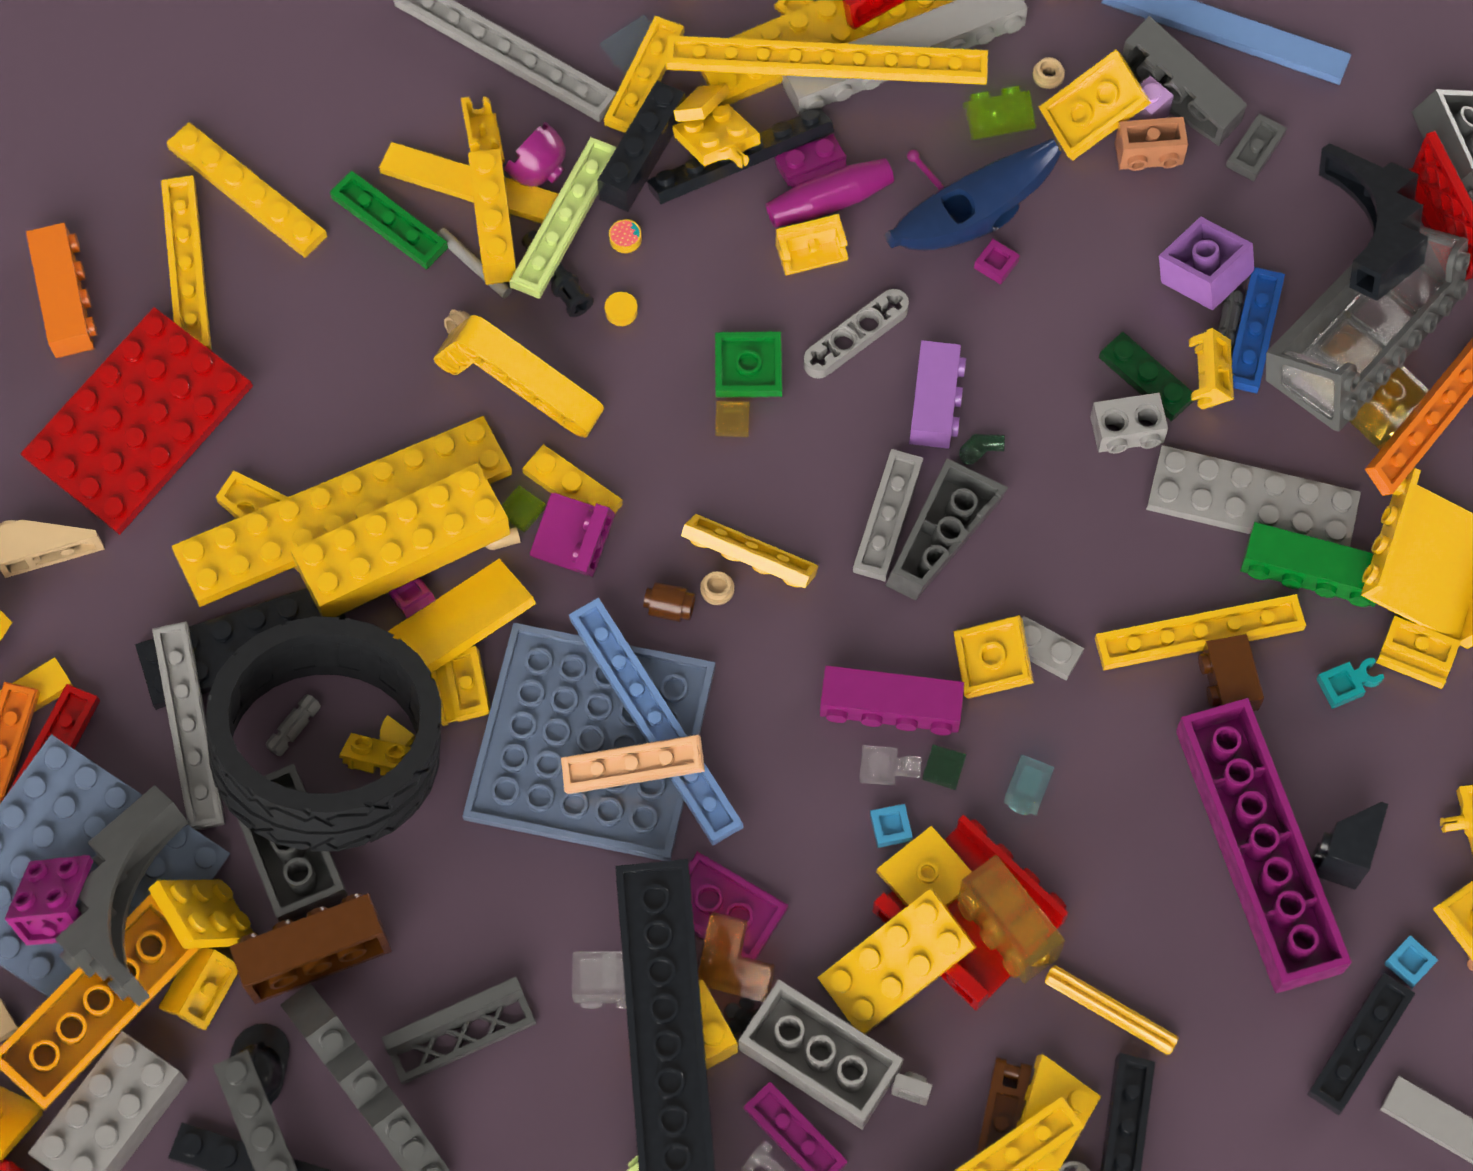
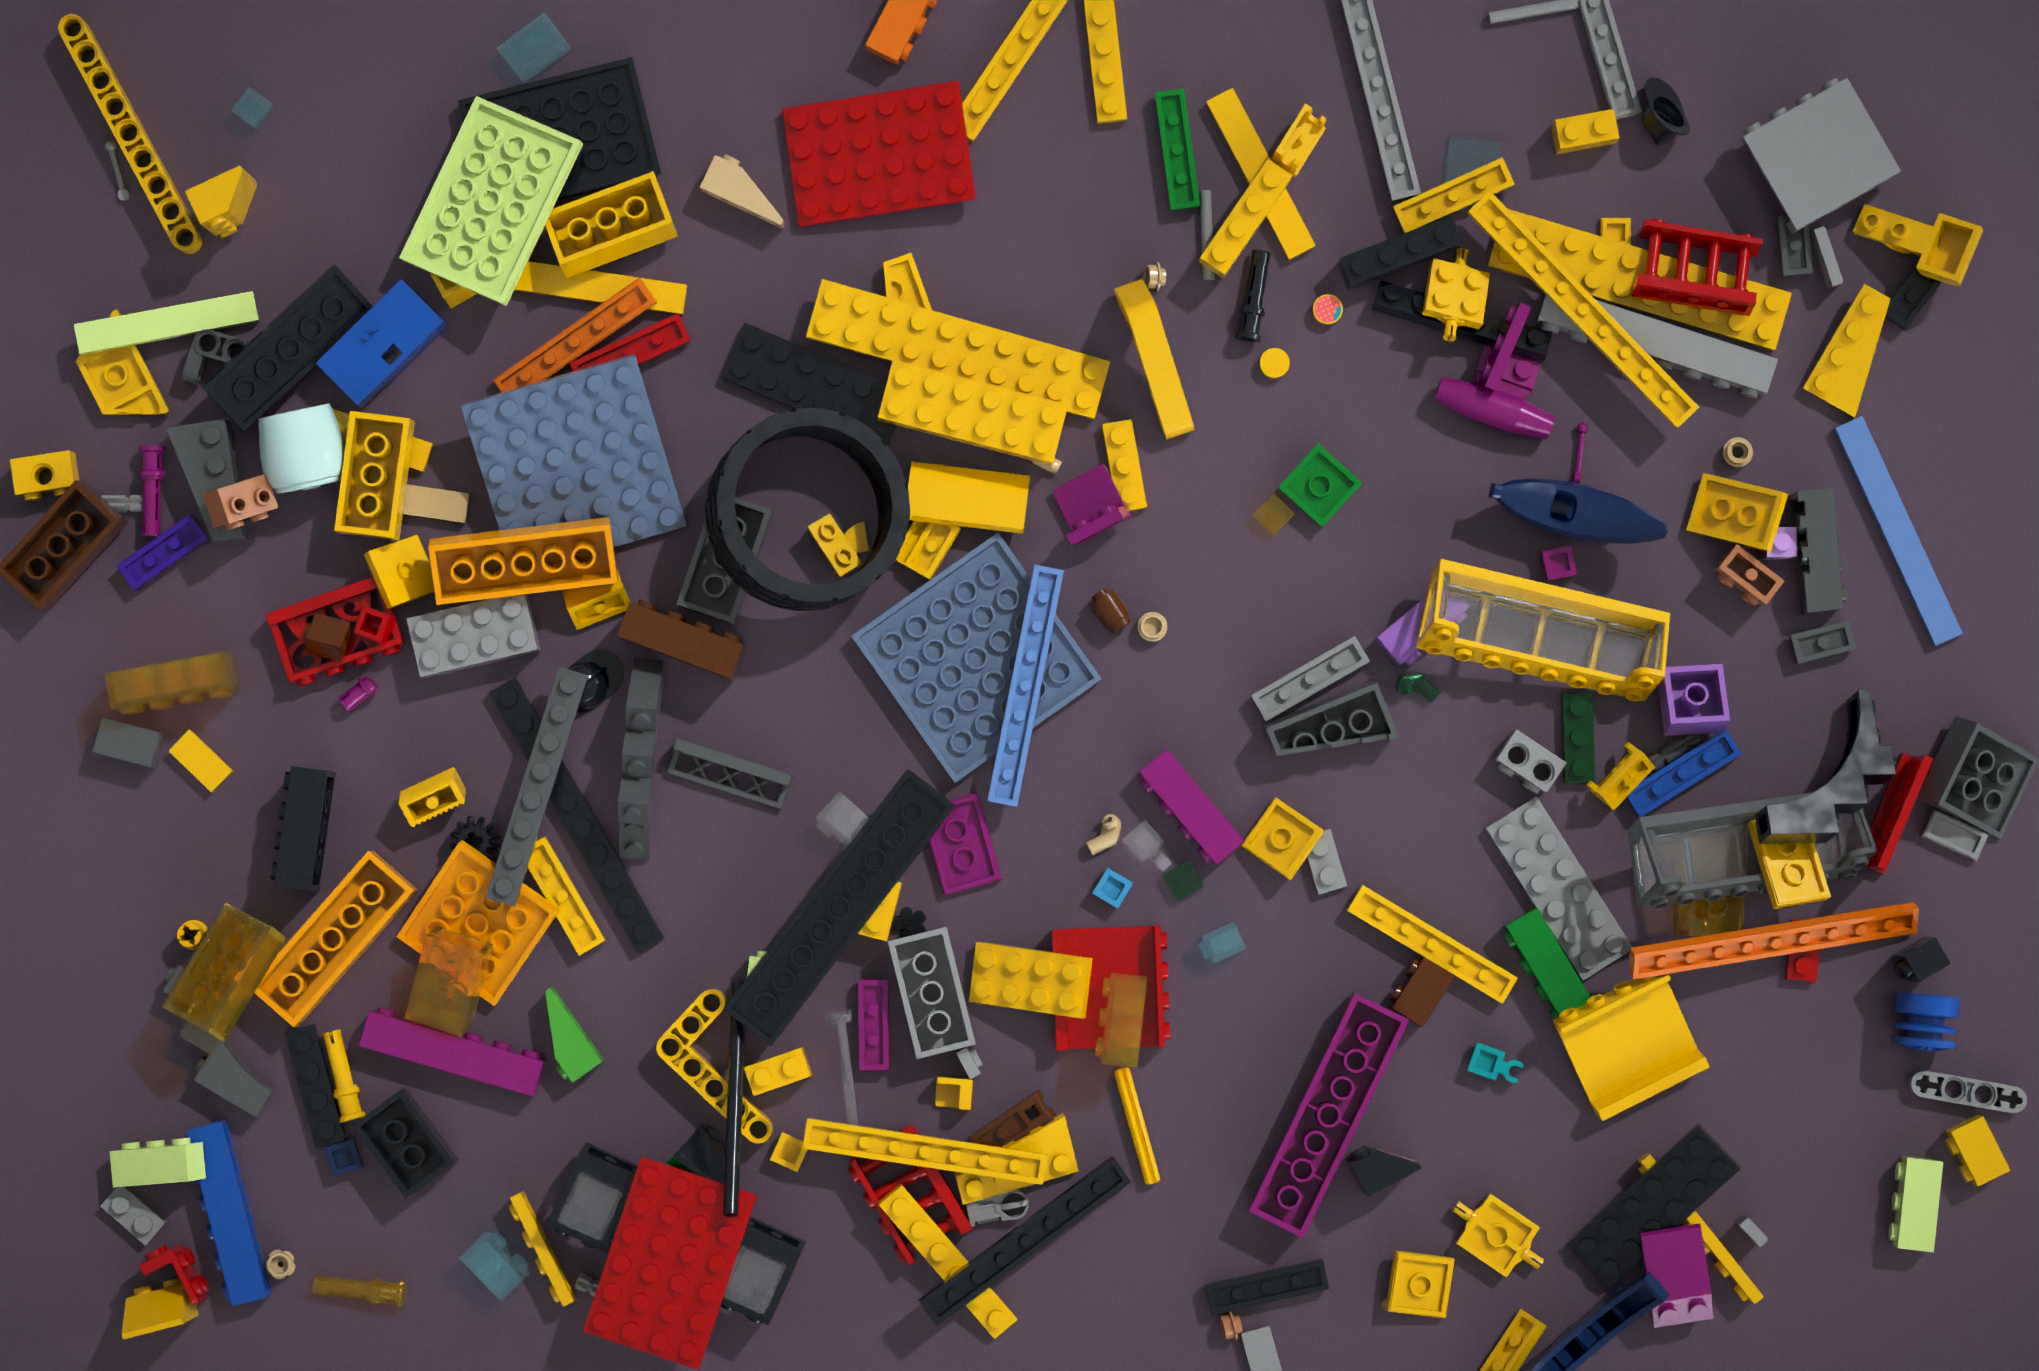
camera: 40 degrees right, 20 degrees up
(48, 898) = (546, 472): magenta bracket -> none
(122, 857) = (614, 481): dark grey arch -> none
(188, 725) = (731, 413): light grey tile -> none
(201, 912) = (633, 560): yellow plate -> none
(293, 725) = (799, 472): light grey axle -> none
(412, 597) = (950, 453): magenta tile -> none
(523, 508) = (1077, 451): clear neon green tile -> none
(538, 158) = (1318, 198): magenta cylinder -> none
(562, 220) = (1296, 261): yellowish green tile -> none
(632, 764) = (983, 704): light nougat tile -> none
(701, 102) = (1469, 258): yellow tile -> none
(723, 965) = (925, 885): clear orange plate -> none
(741, 547) = (1195, 621): yellow plate -> none
(792, 132) = (1504, 345): none -> magenta plate
(811, 244) = (1445, 435): yellow hinge -> none
(844, 786) = (1108, 836): none -> tan arm
(852, 329) = (1414, 527): light grey beam -> none
(924, 866) = (1106, 938): yellow plate -> none
(924, 1128) = (954, 1092): none -> yellow panel
(999, 114) = (1672, 451): clear neon green bracket -> none
(1038, 311) = (1544, 631): none -> window
(1366, 1108) = (1230, 1326): none -> nougat plate
(1411, 961) = (1348, 1267): dark azure plate -> none
(1416, 307) = (1790, 871): none -> yellow tile
(1418, 652) = (1557, 1086): yellow plate -> none

